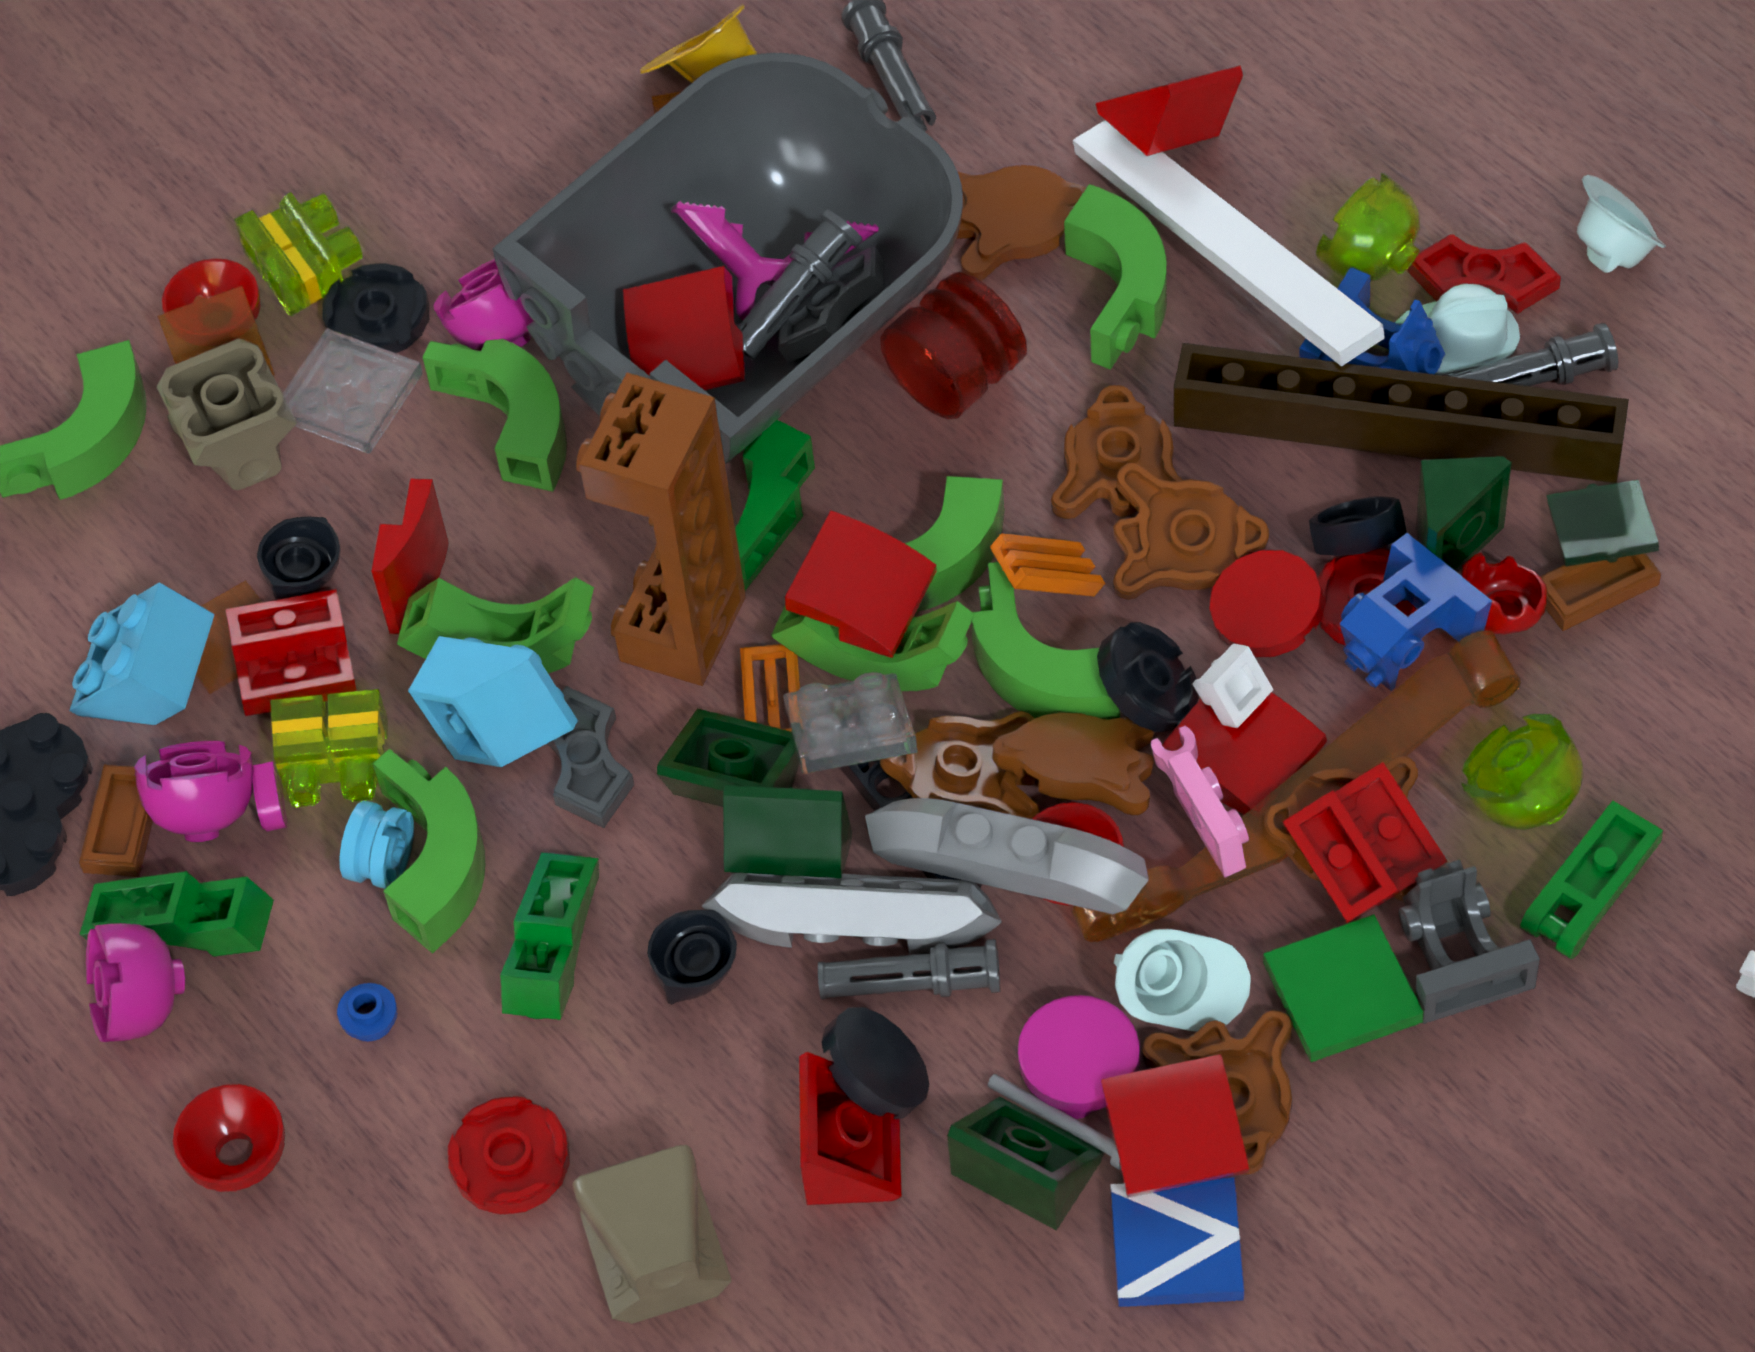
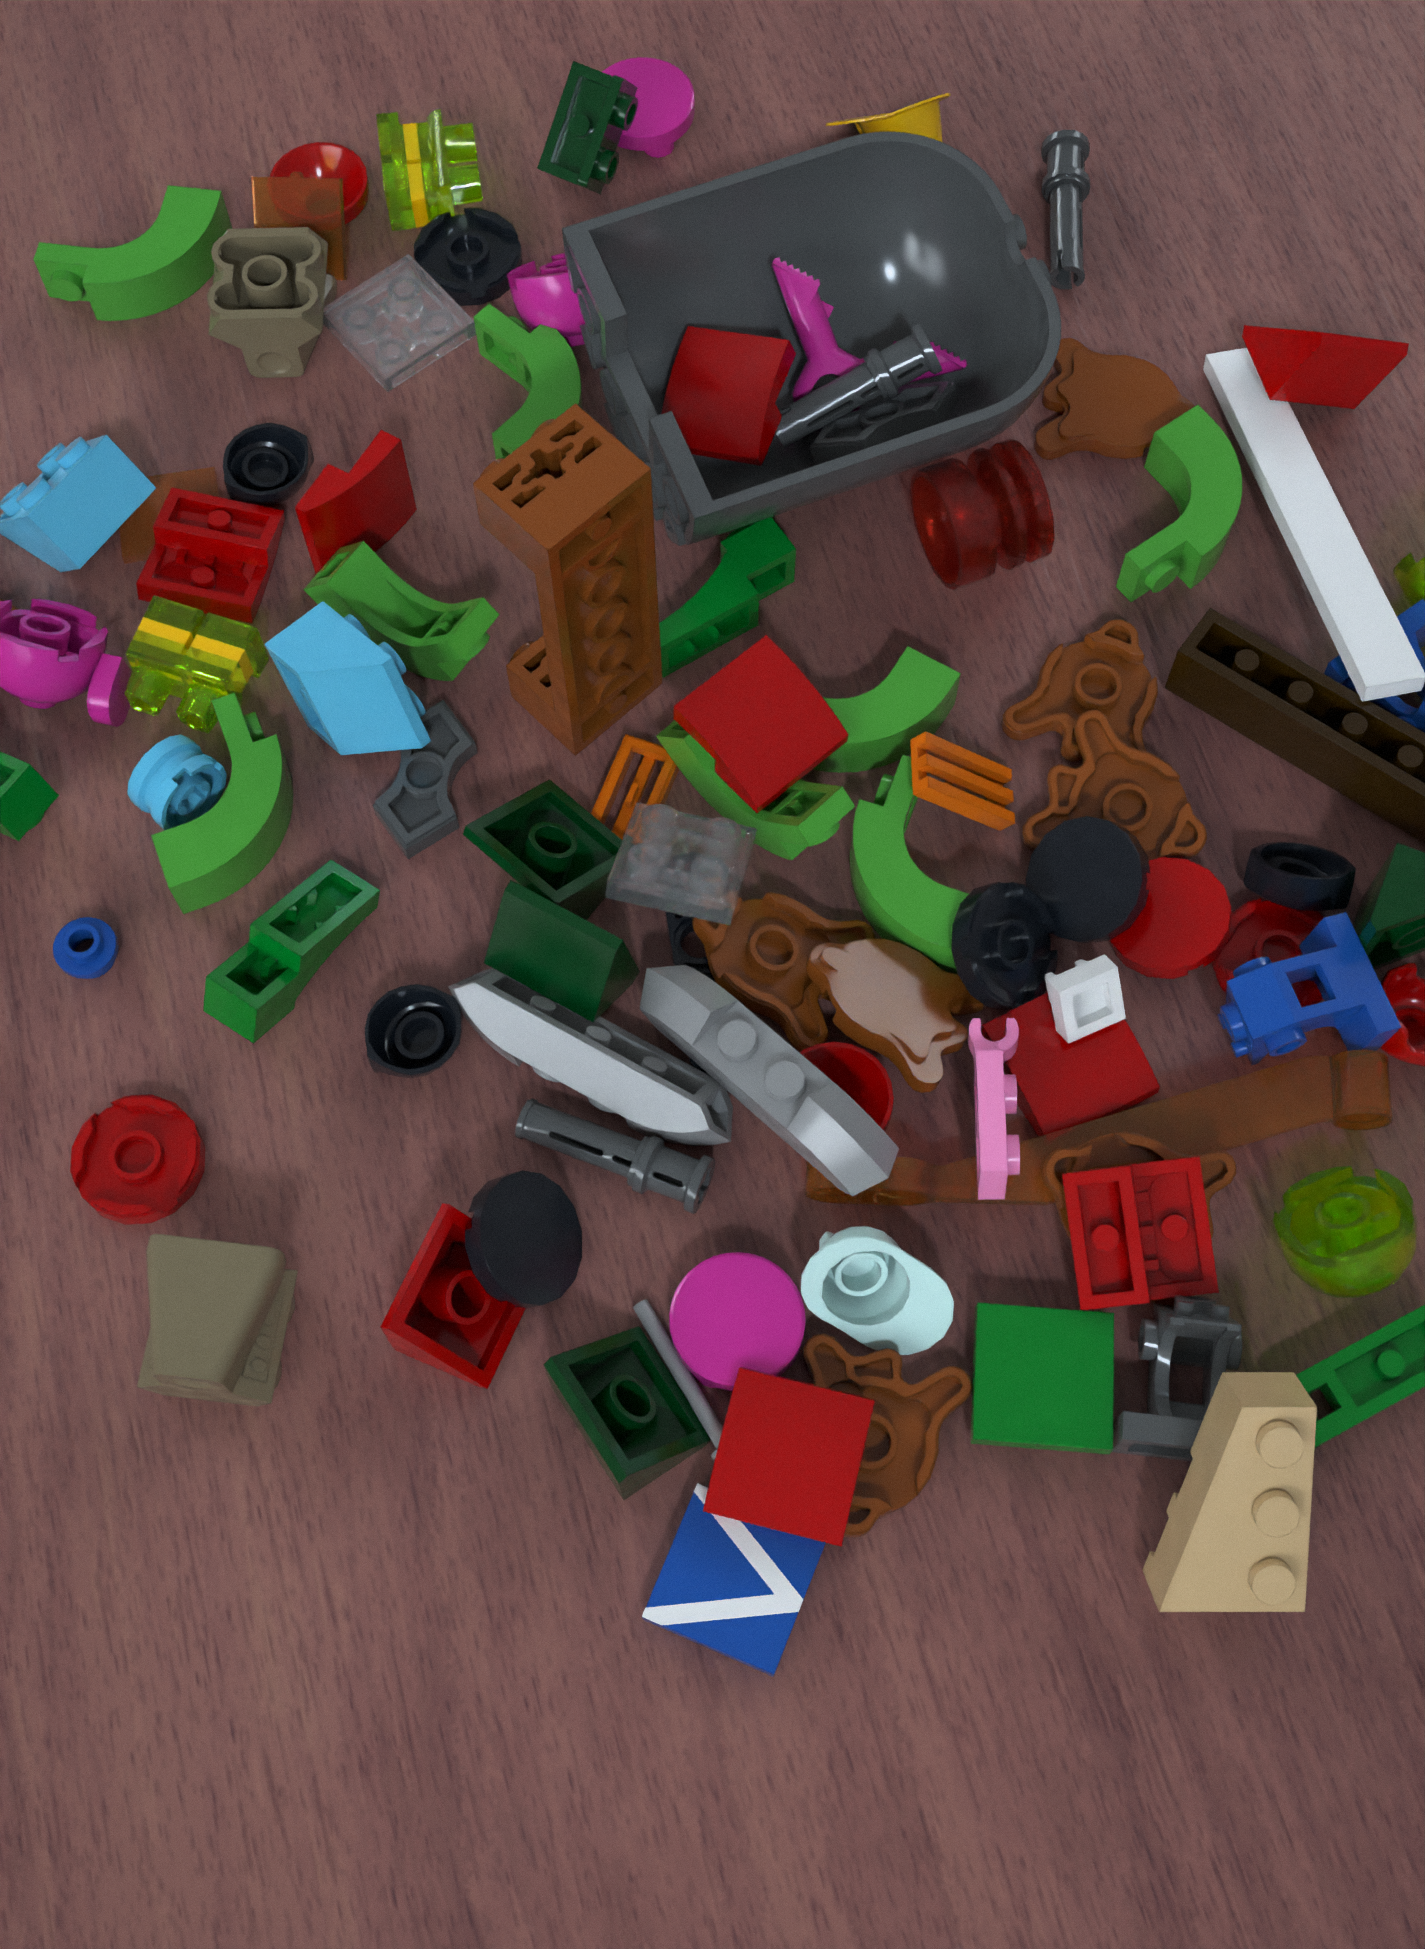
camera: 20 degrees right, 10 degrees up
(433, 157) = (589, 128): none -> dark green bracket
(464, 118) = (663, 108): none -> dark pink tile
(1190, 596) = (1090, 878): none -> black tile
(1540, 994) = (1245, 1503): none -> tan wedge

